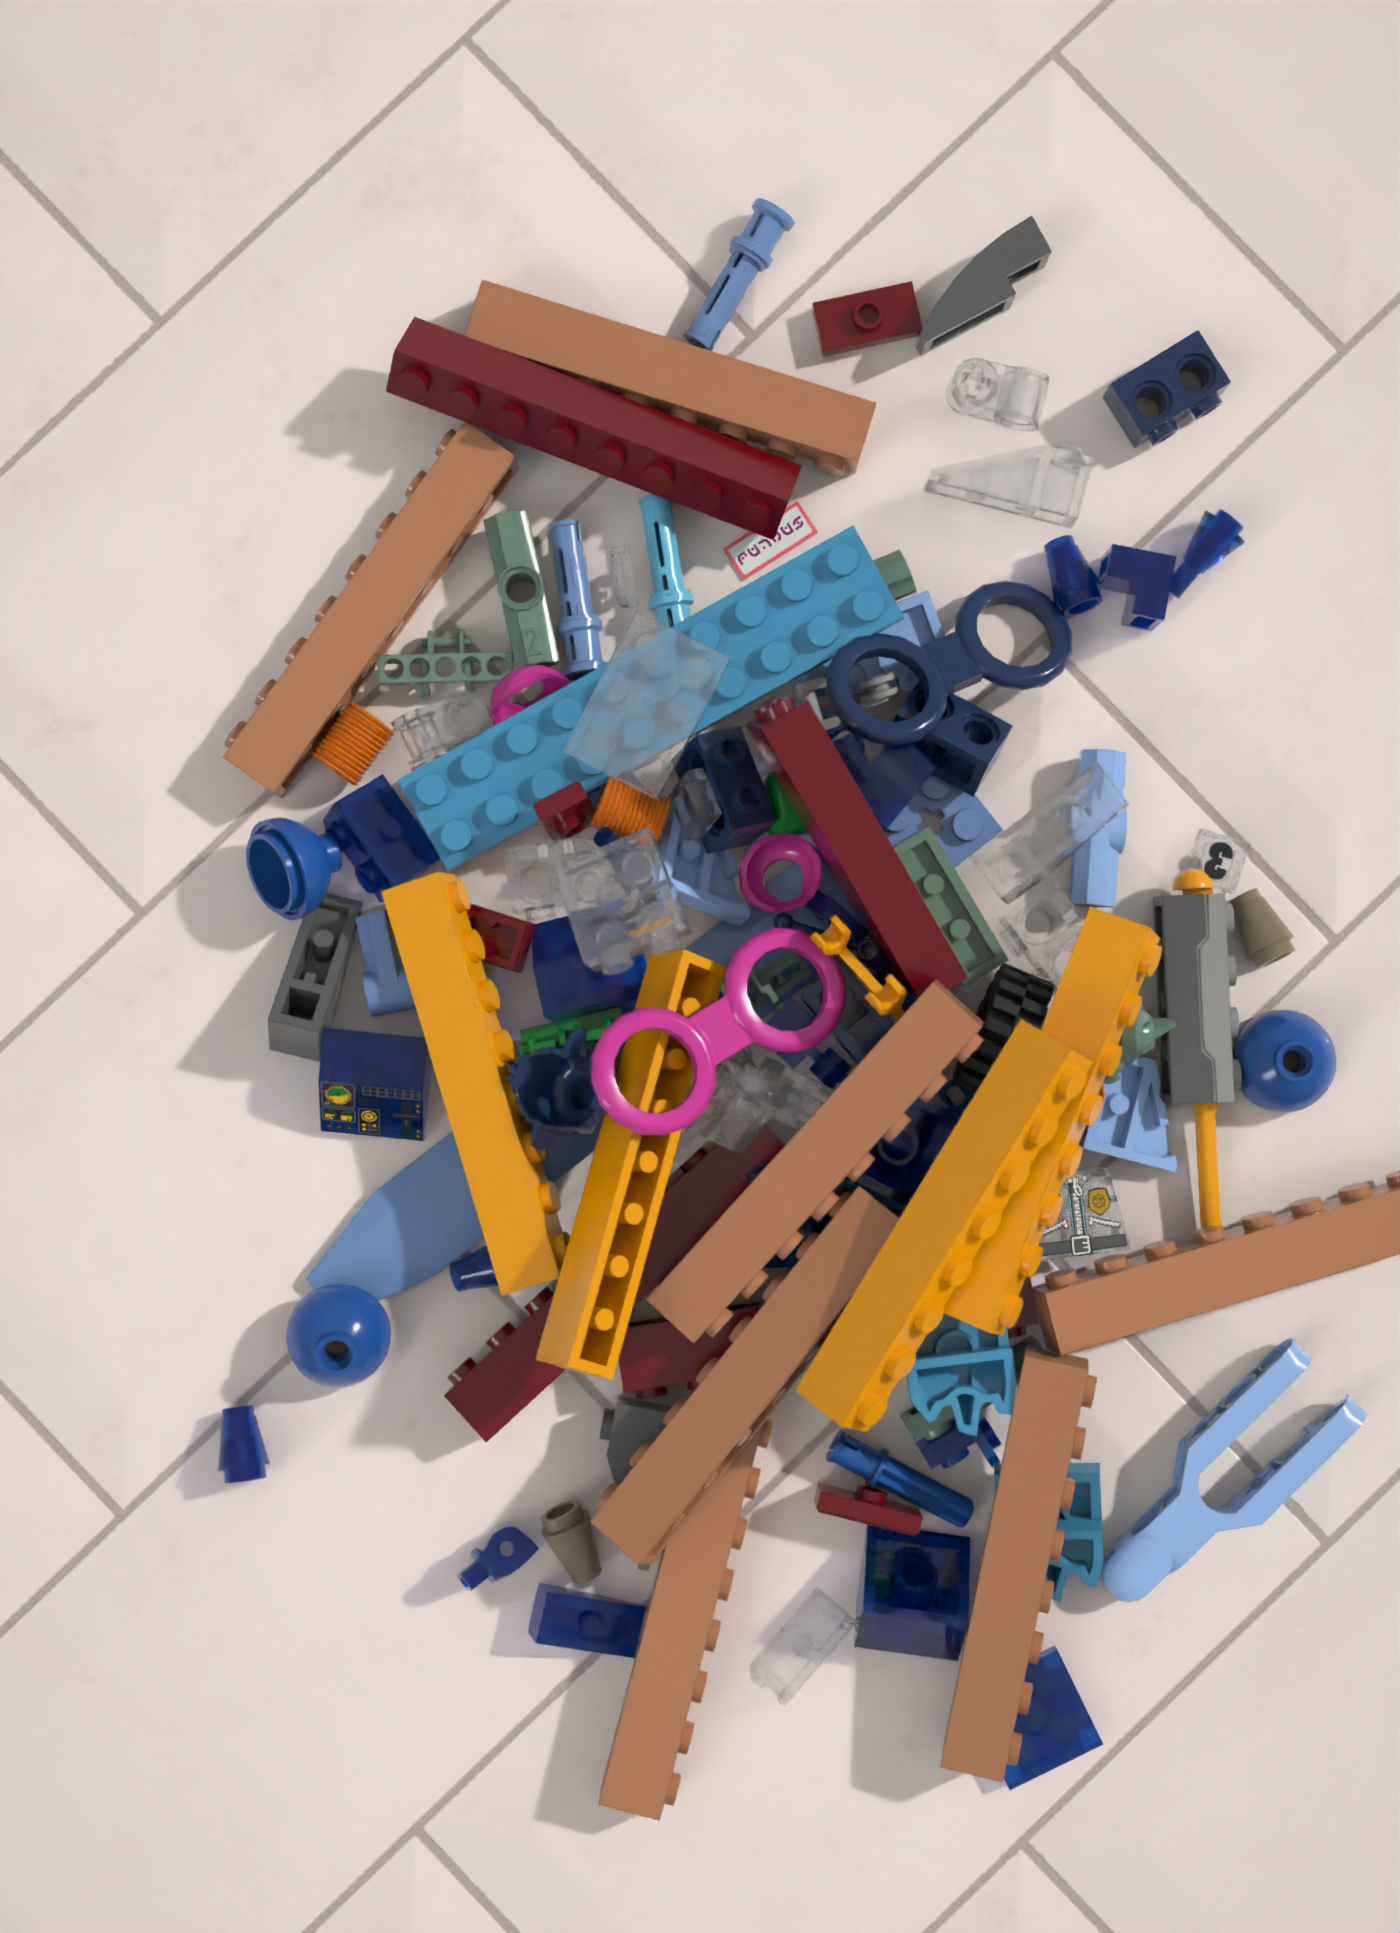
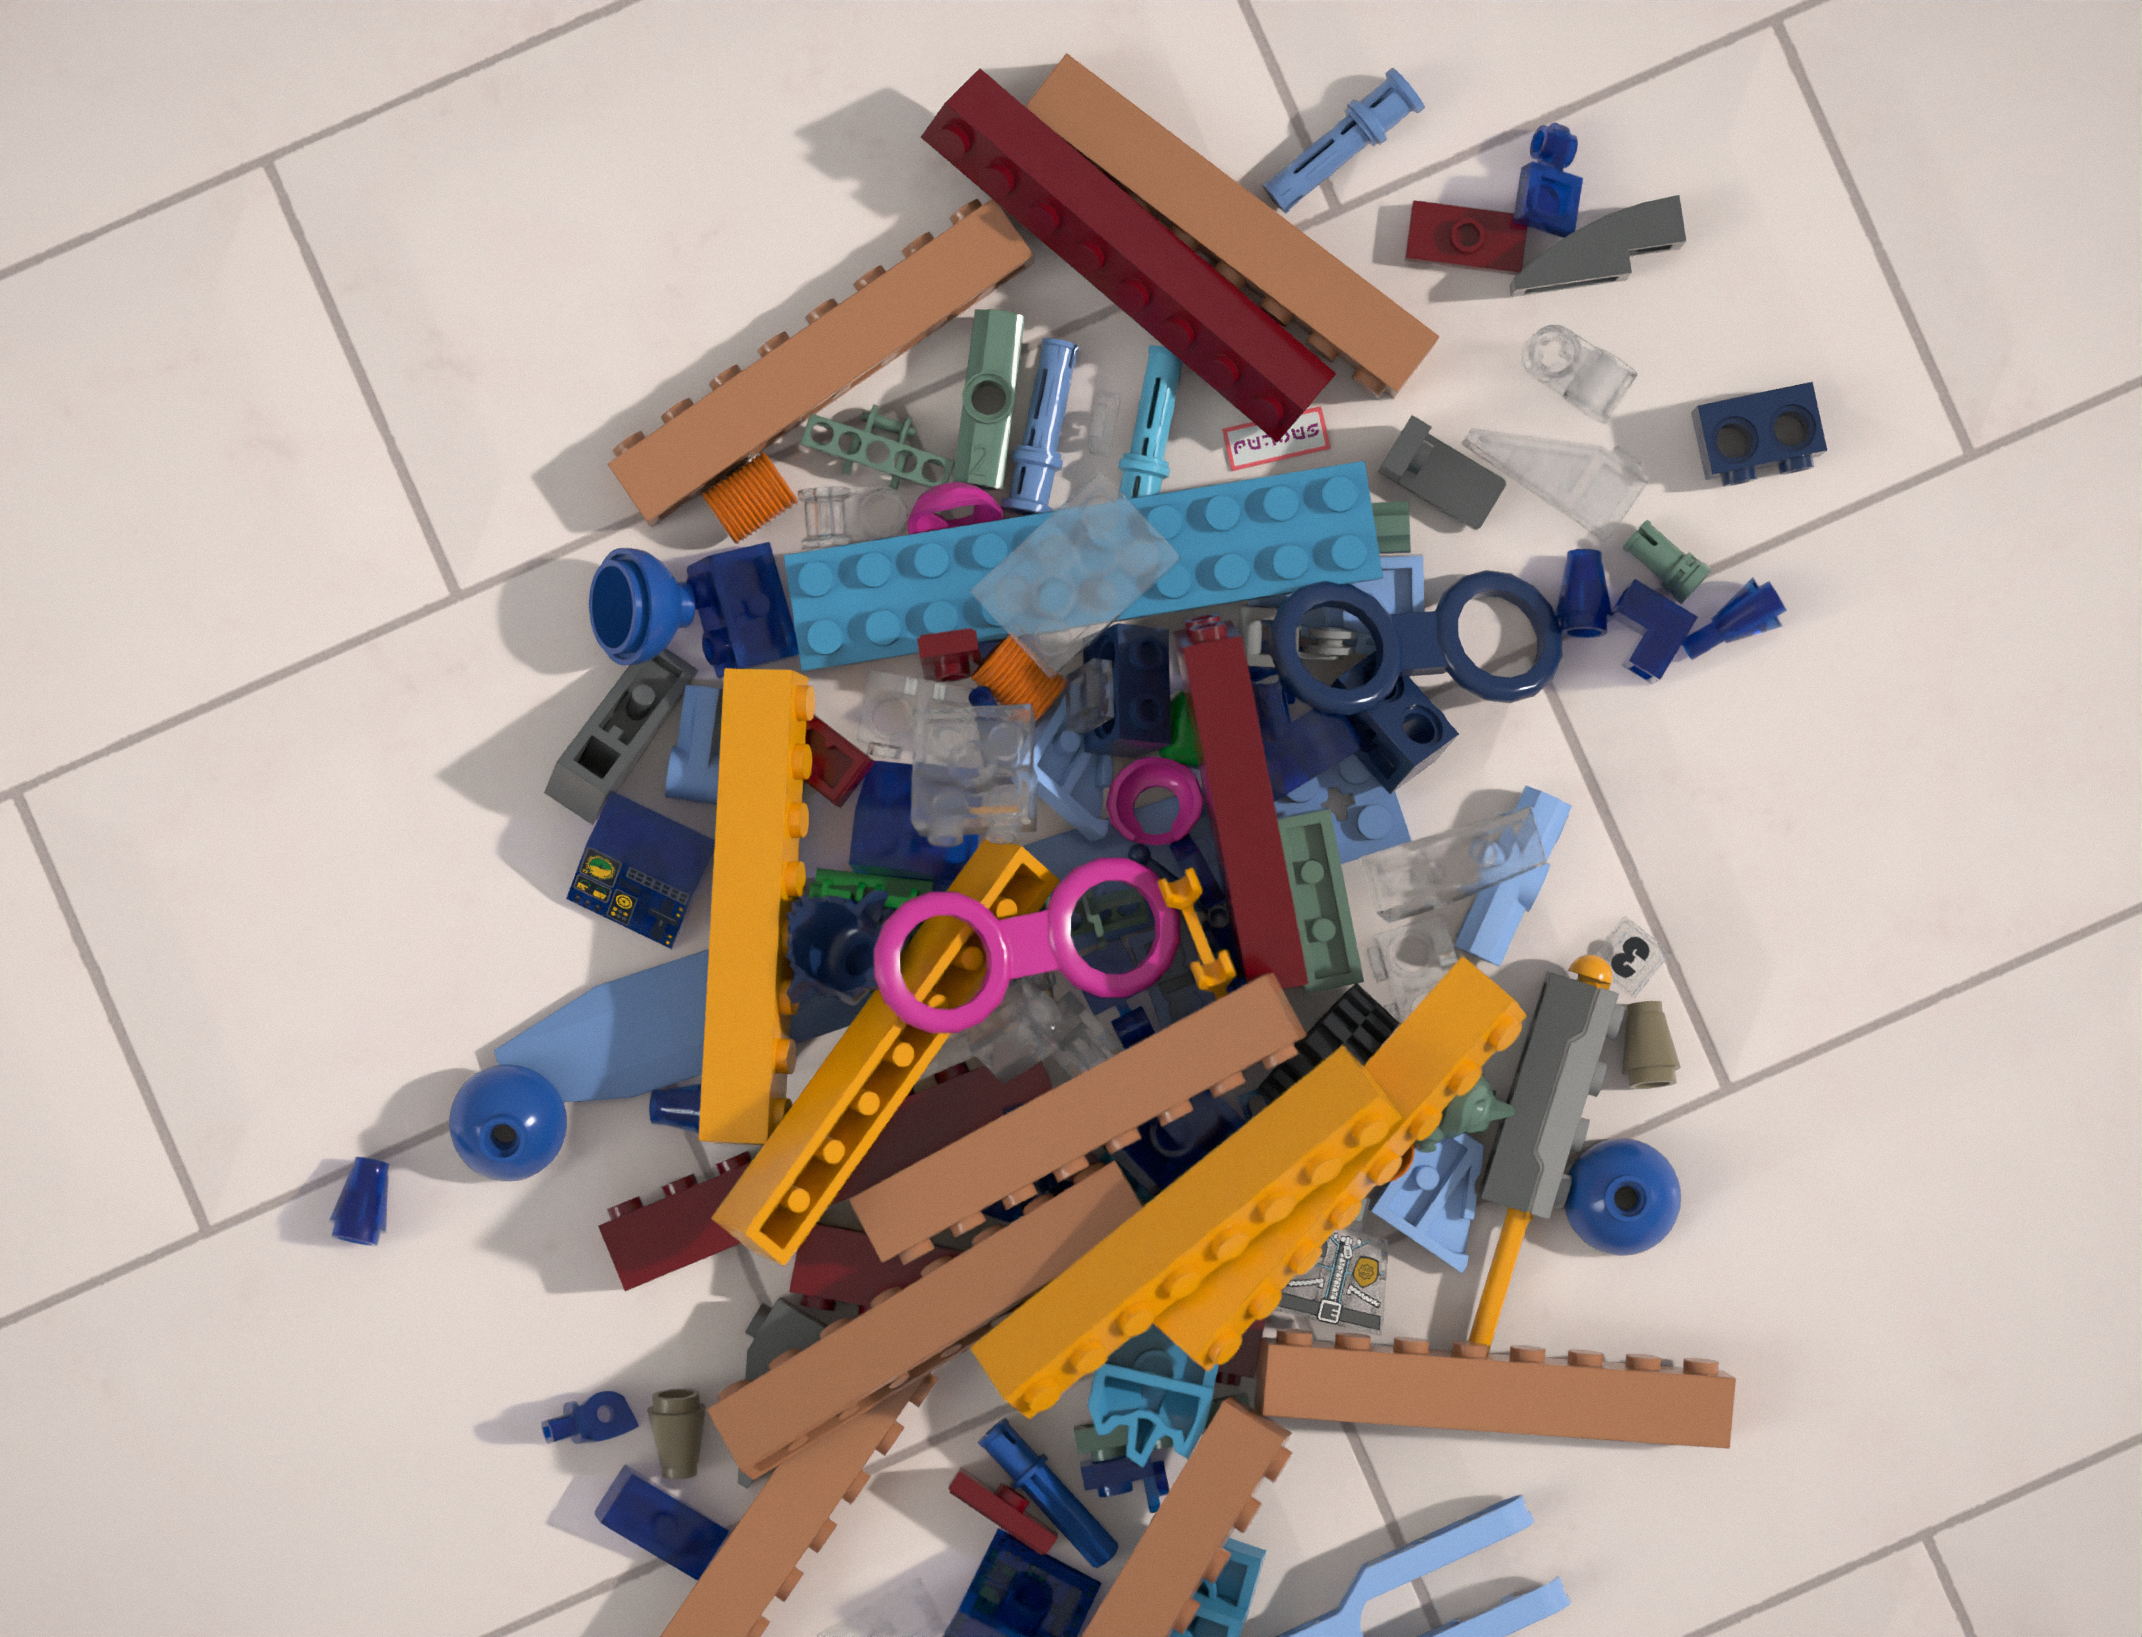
camera: 25 degrees right, 0 degrees up
(917, 519) = (1442, 475): none -> dark grey bracket
(920, 256) = (1546, 194): none -> clear blue plate
(1141, 529) = (1678, 571): none -> sand green pin

